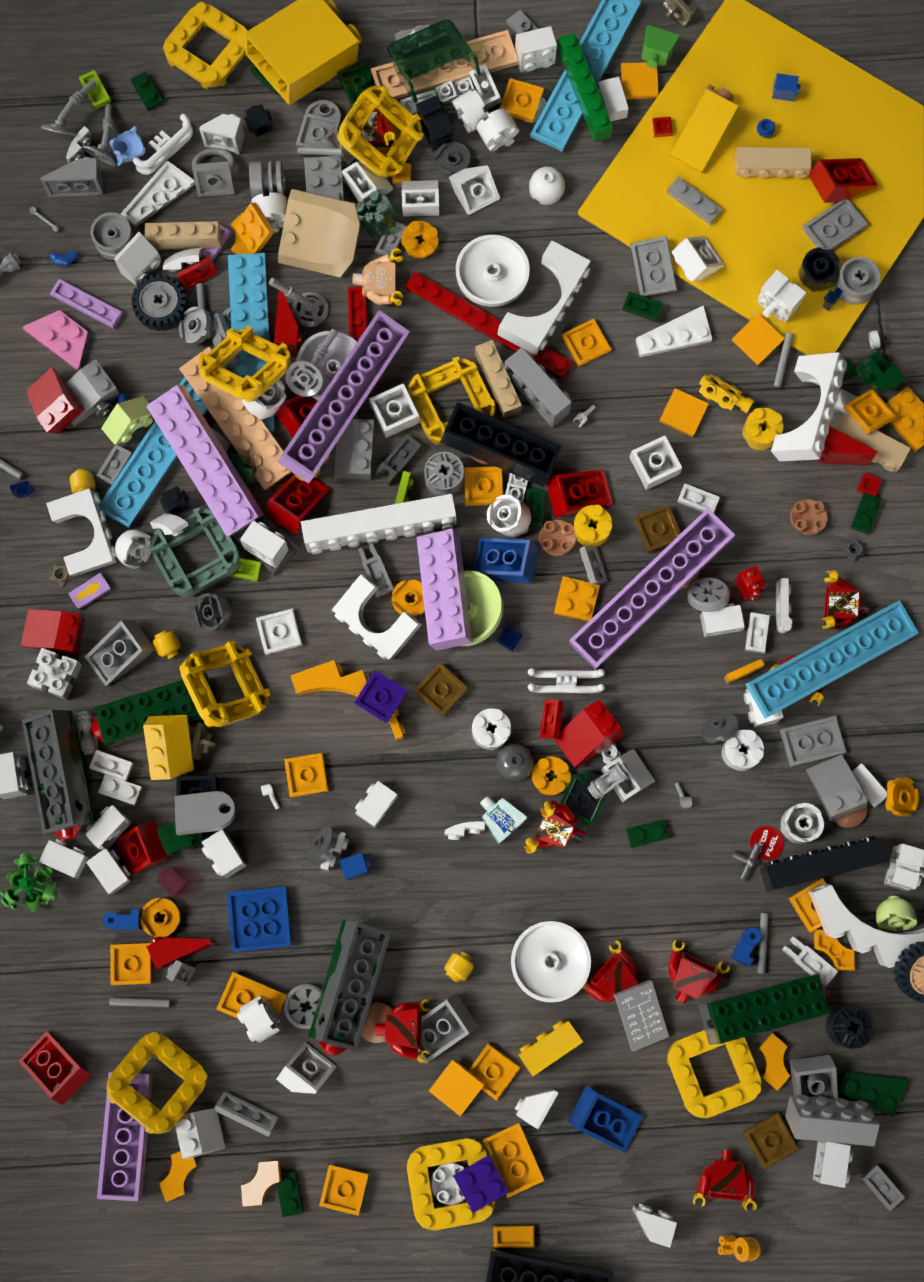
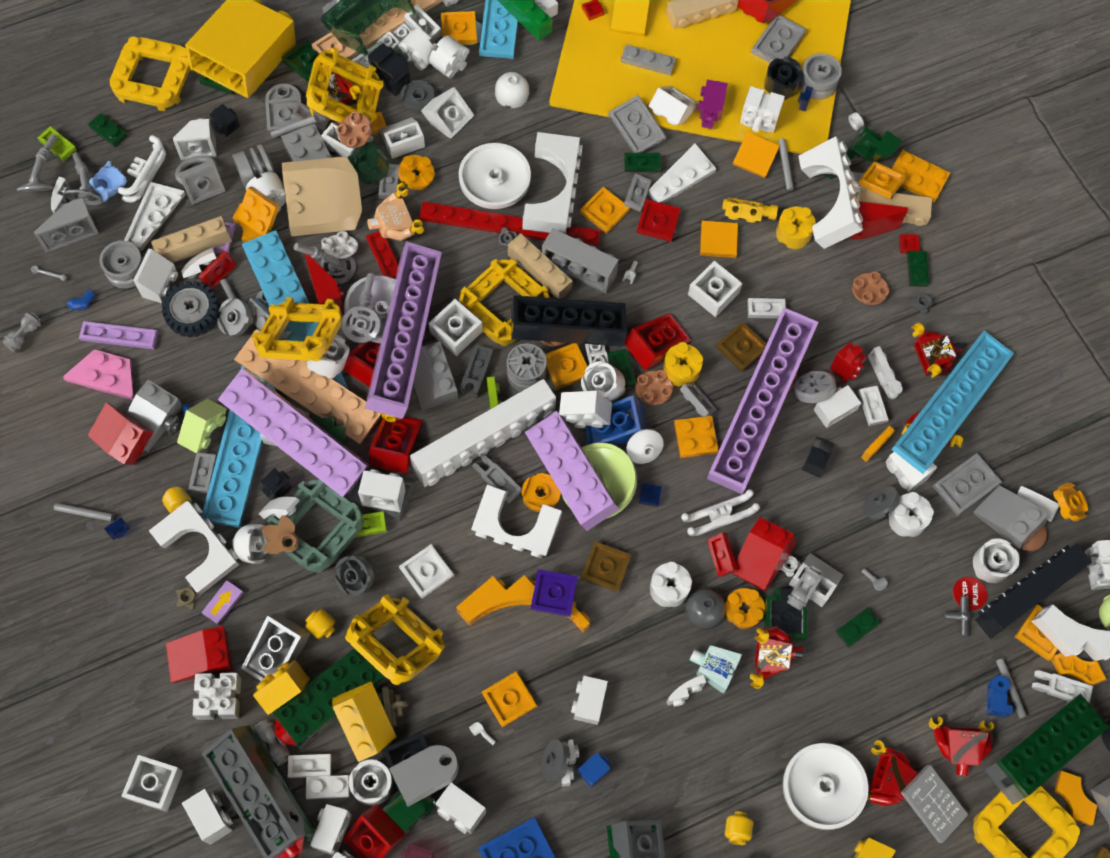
camera: 25 degrees left, 10 degrees down
(110, 688) = (280, 686): none -> yellow brick
(151, 792) = (362, 774): none -> white brick
(157, 550) = (278, 535): none -> medium nougat plate
(319, 289) = (340, 245): none -> white dish
(374, 178) = (355, 130): none -> nougat dish
(475, 337) = (504, 233): none -> dark grey plate
(480, 536) = (585, 409): none -> white brick
(522, 591) = (643, 440): none -> white dish
(624, 337) = (637, 192): none -> light grey plate
(632, 372) = (658, 220): none -> red plate
(682, 661) = (818, 457): none -> black slope
(738, 269) = (712, 103): none -> magenta hinge

